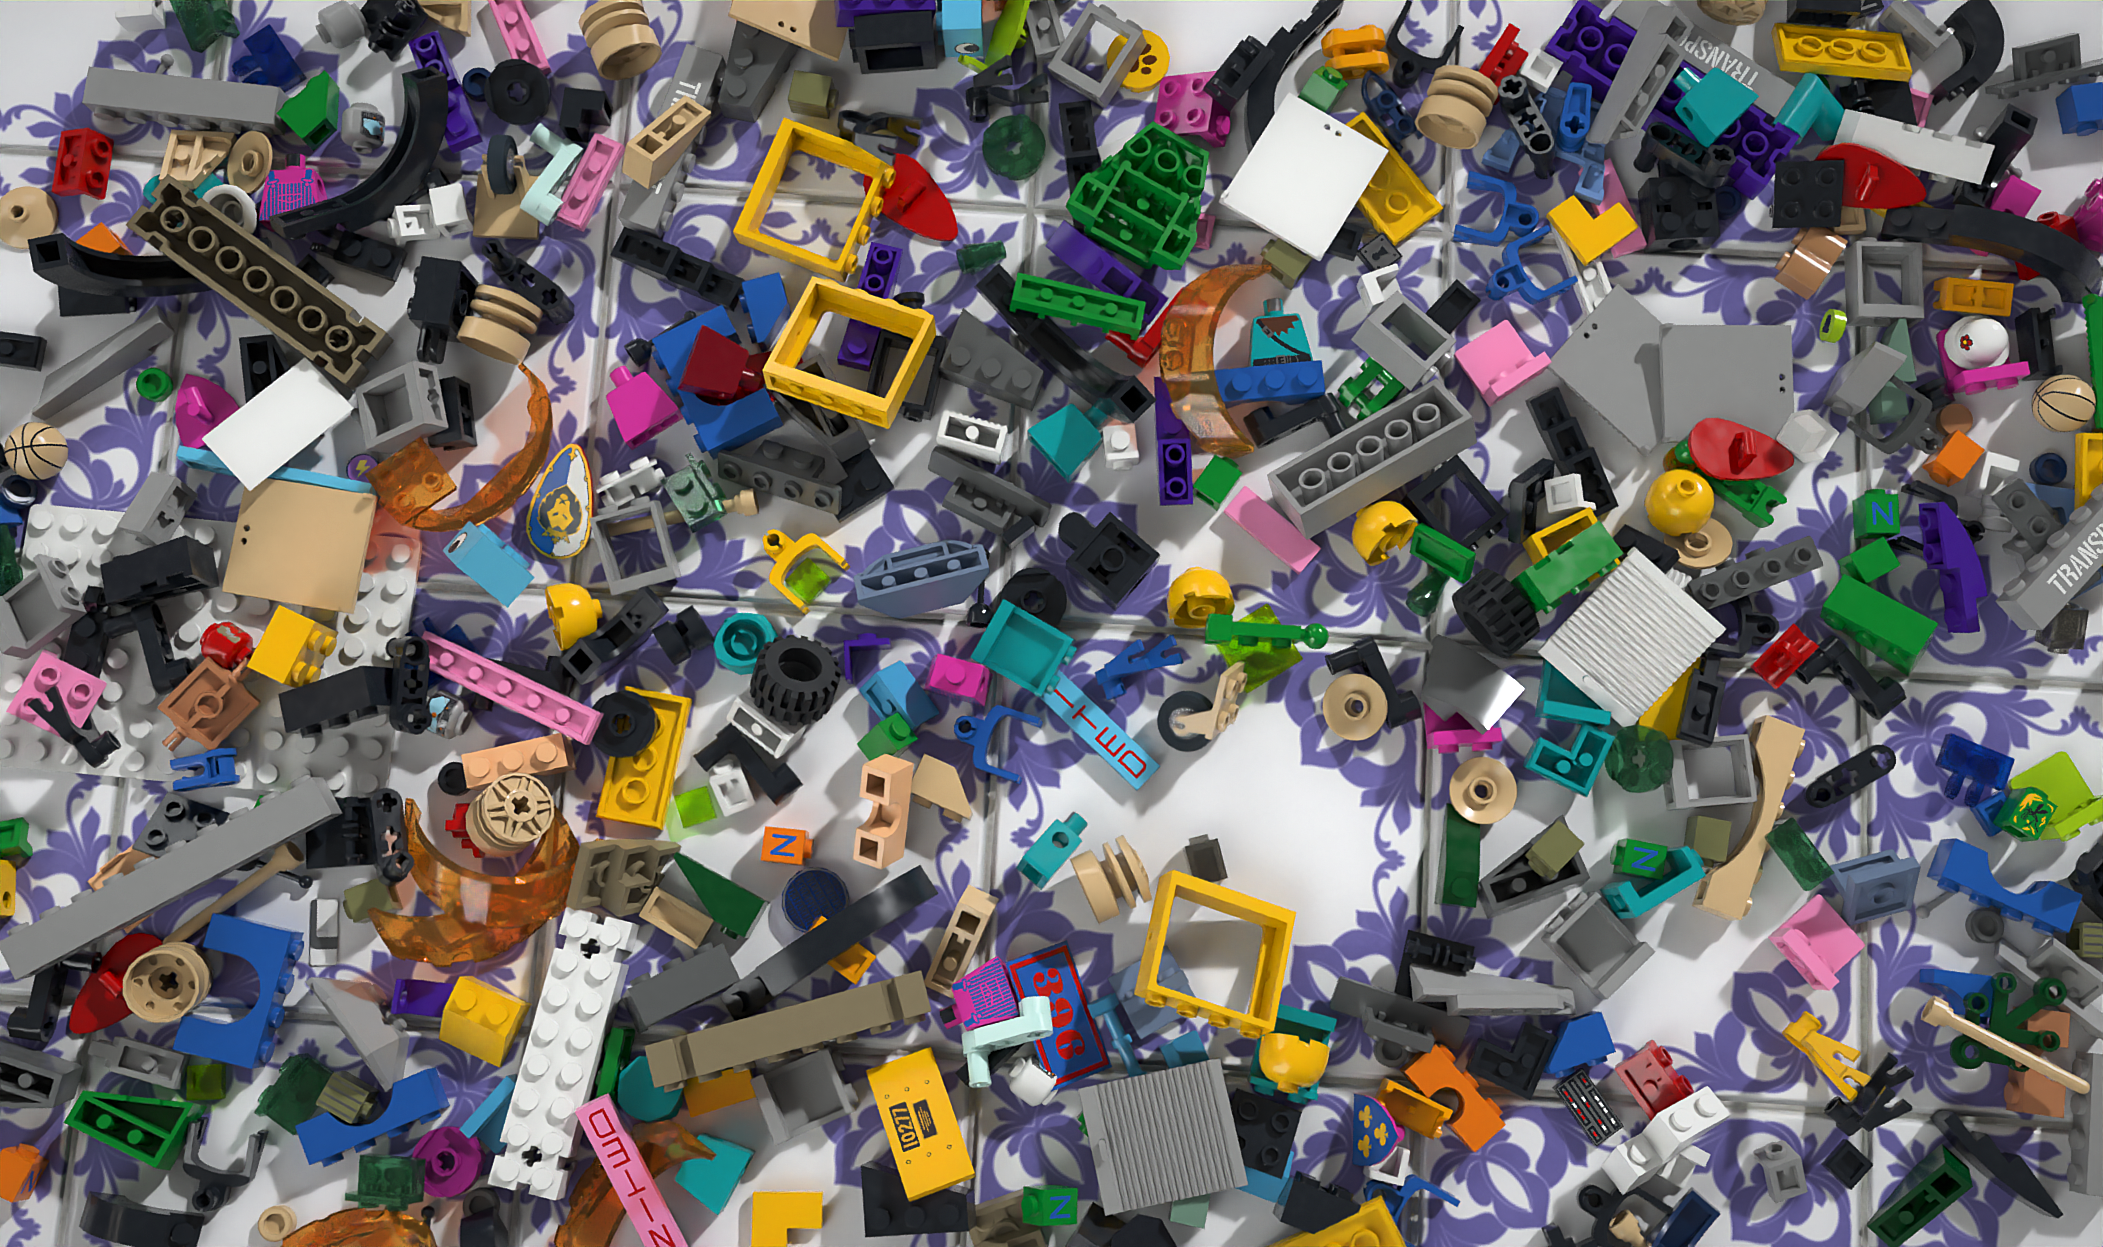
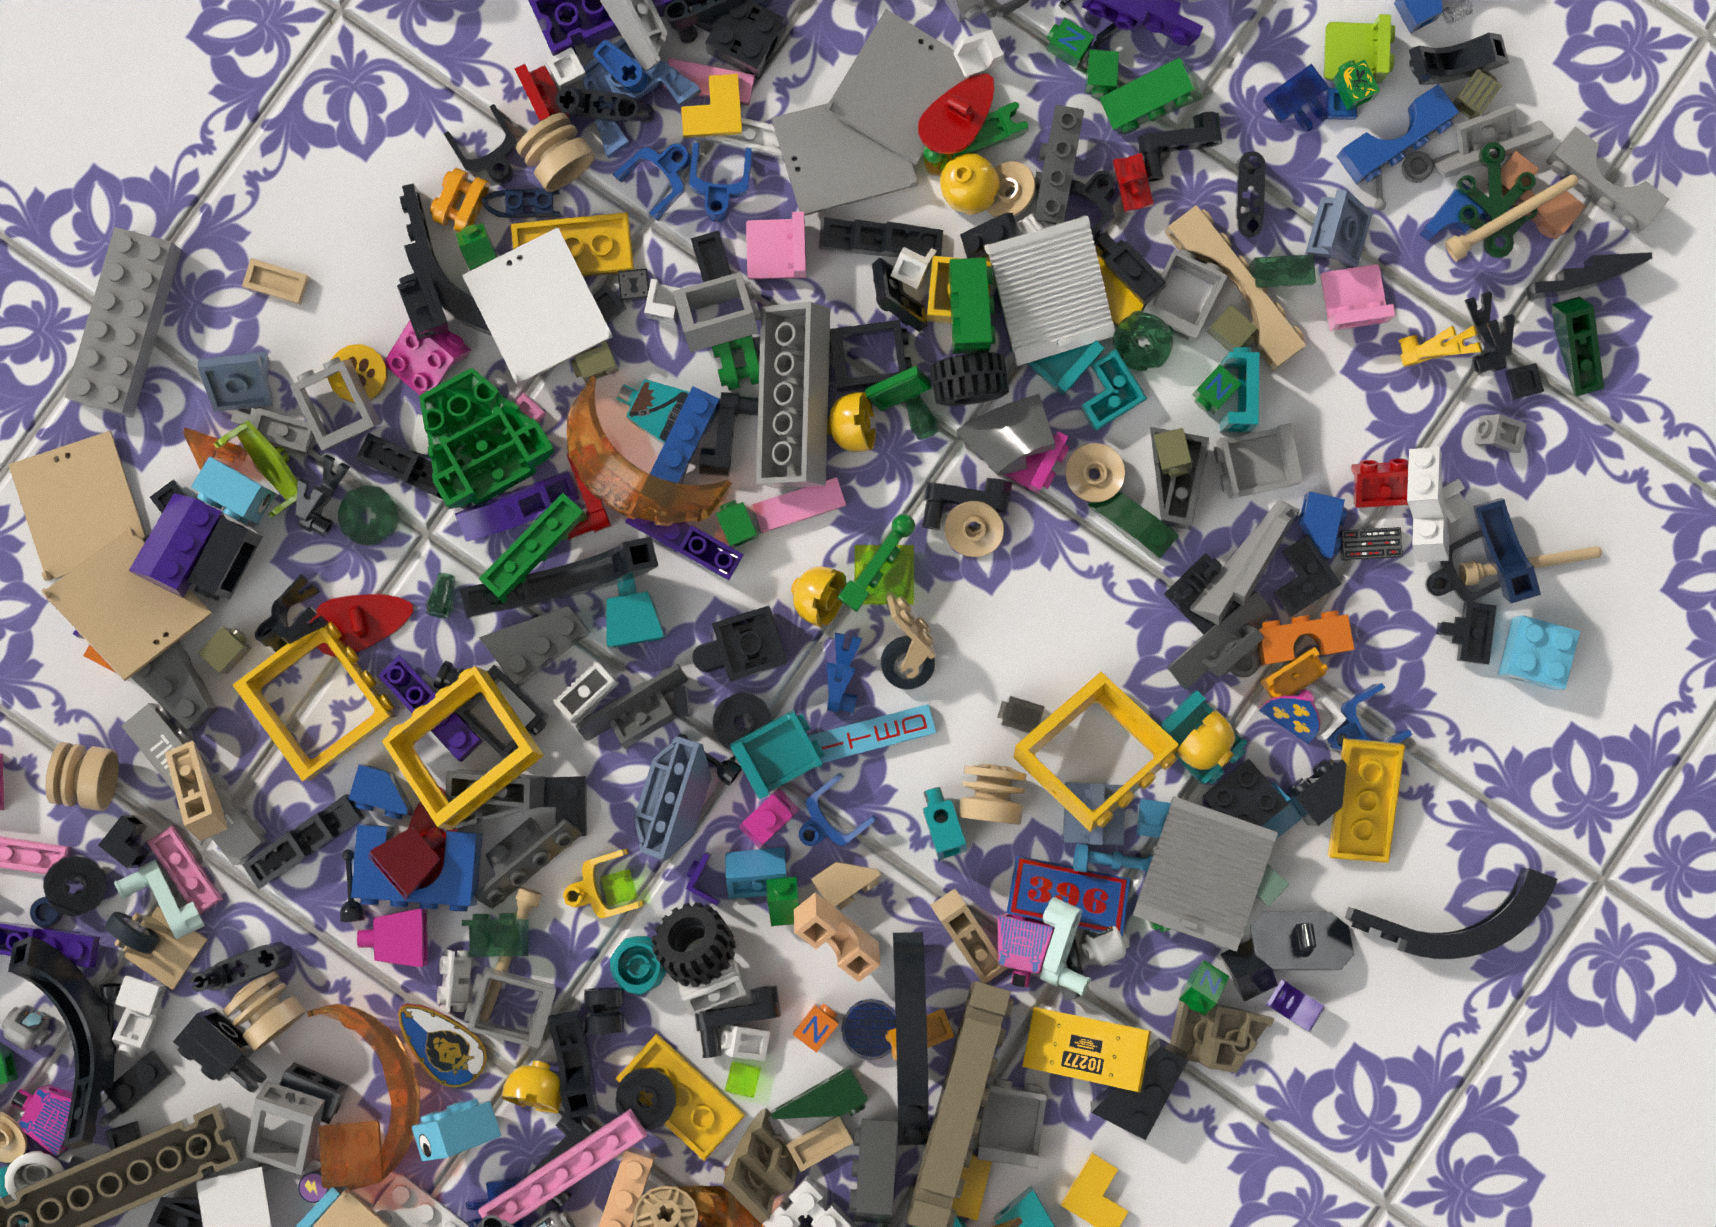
camera: 55 degrees left, 5 degrees up
(1120, 447) = (663, 582): white bracket -> none

